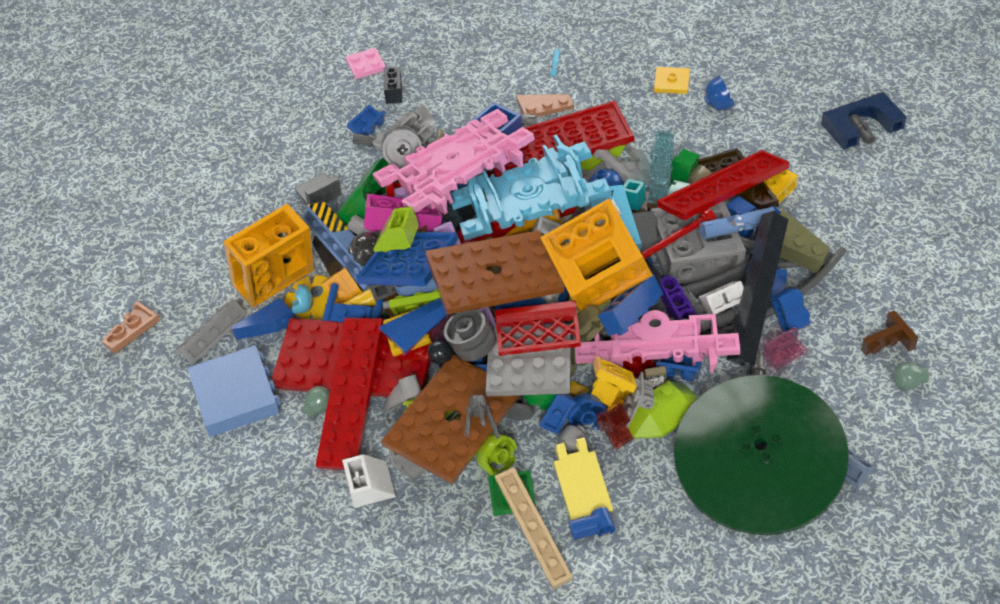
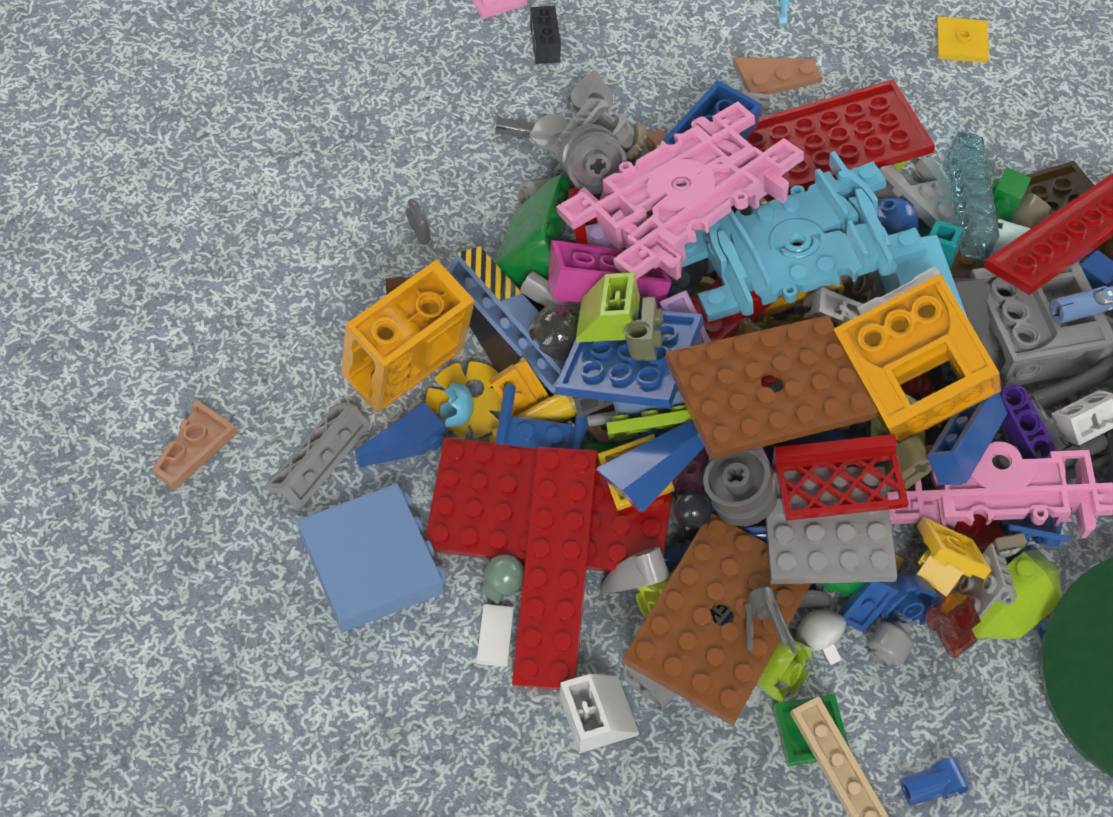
camera: 10 degrees left, 10 degrees up
(293, 194) = (418, 221): none -> dark grey head
(309, 437) = (495, 635): none -> white tile
(319, 189) = (455, 213): dark grey bracket -> none
(366, 121) = (511, 95): blue bracket -> none
(416, 242) = (643, 334): none -> olive plate
(523, 431) = (820, 631): none -> white piece
(581, 480) = (913, 714): light yellow tile -> none
(706, 215) = (1057, 287): red piece -> none
(718, 94) = (1037, 69): blue cylinder -> none

